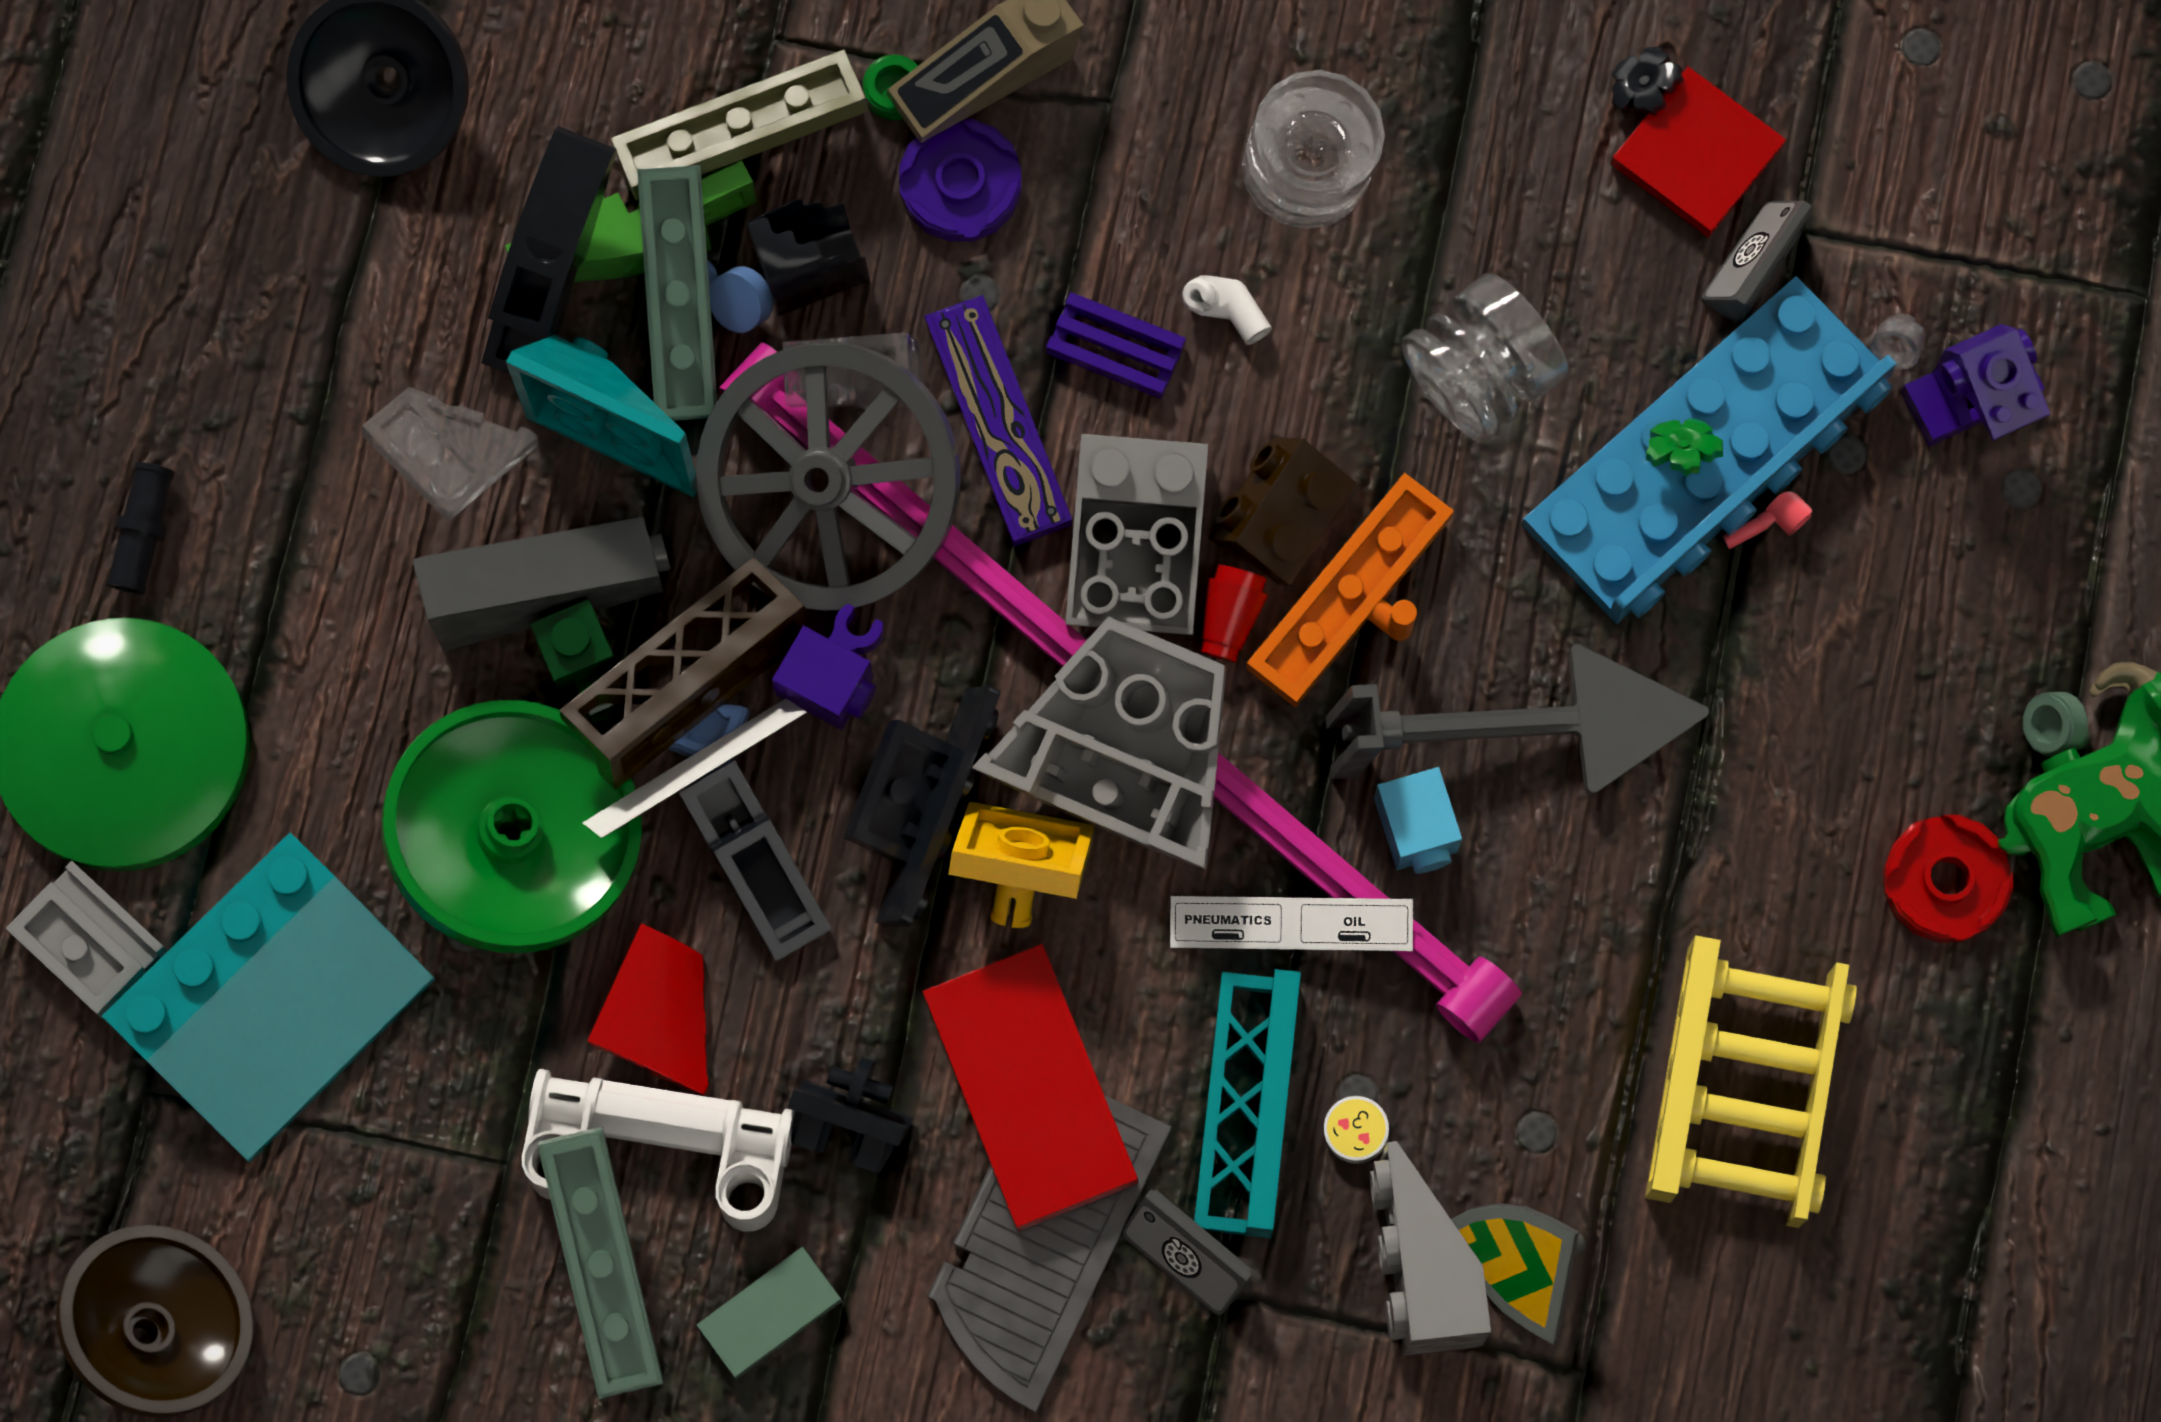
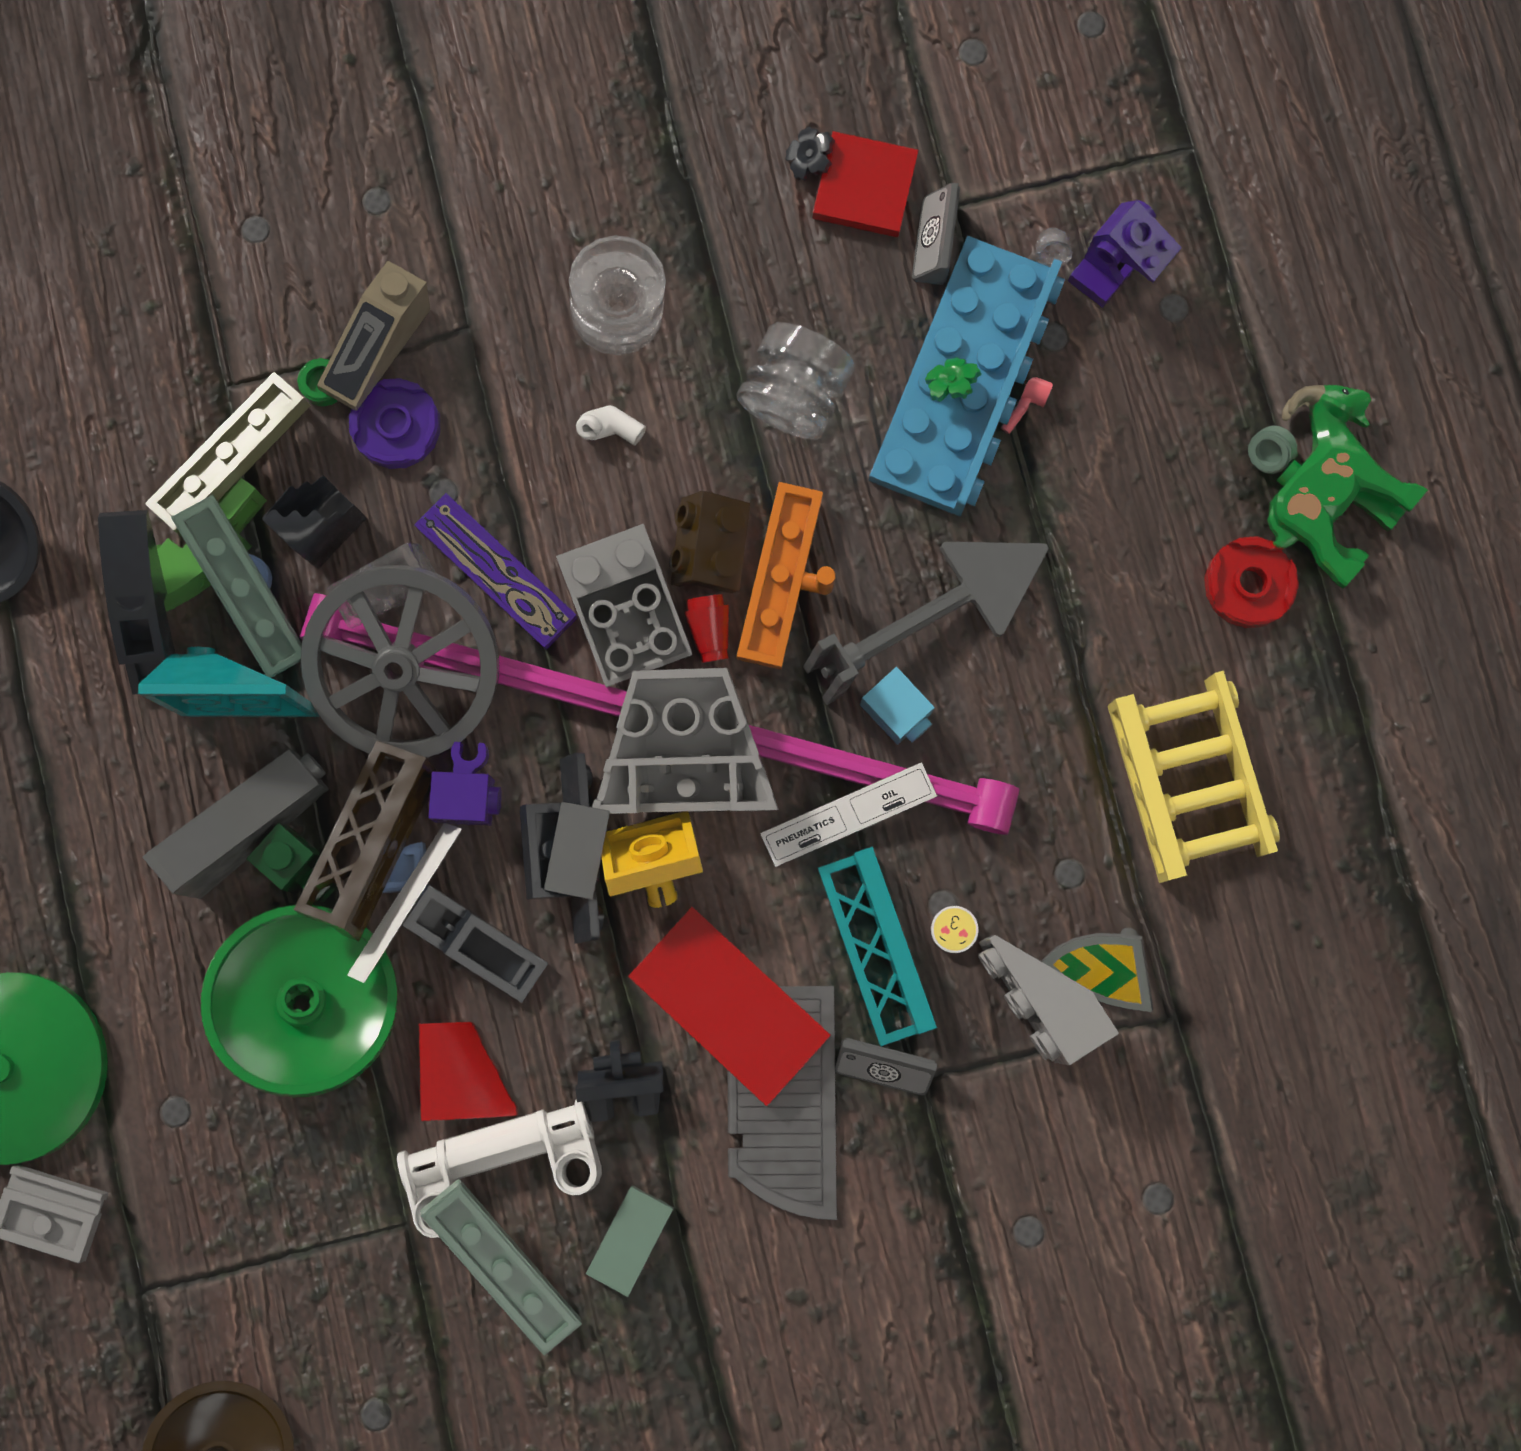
camera: 25 degrees left, 5 degrees up
(269, 997) = (190, 1194): teal slope -> none
(445, 448) = (135, 764): clear wing -> none
(740, 299) = (286, 571): medium blue tile -> none
(934, 804) = (577, 850): none -> dark grey sticker
(1122, 323) = (546, 469): dark purple tile -> none

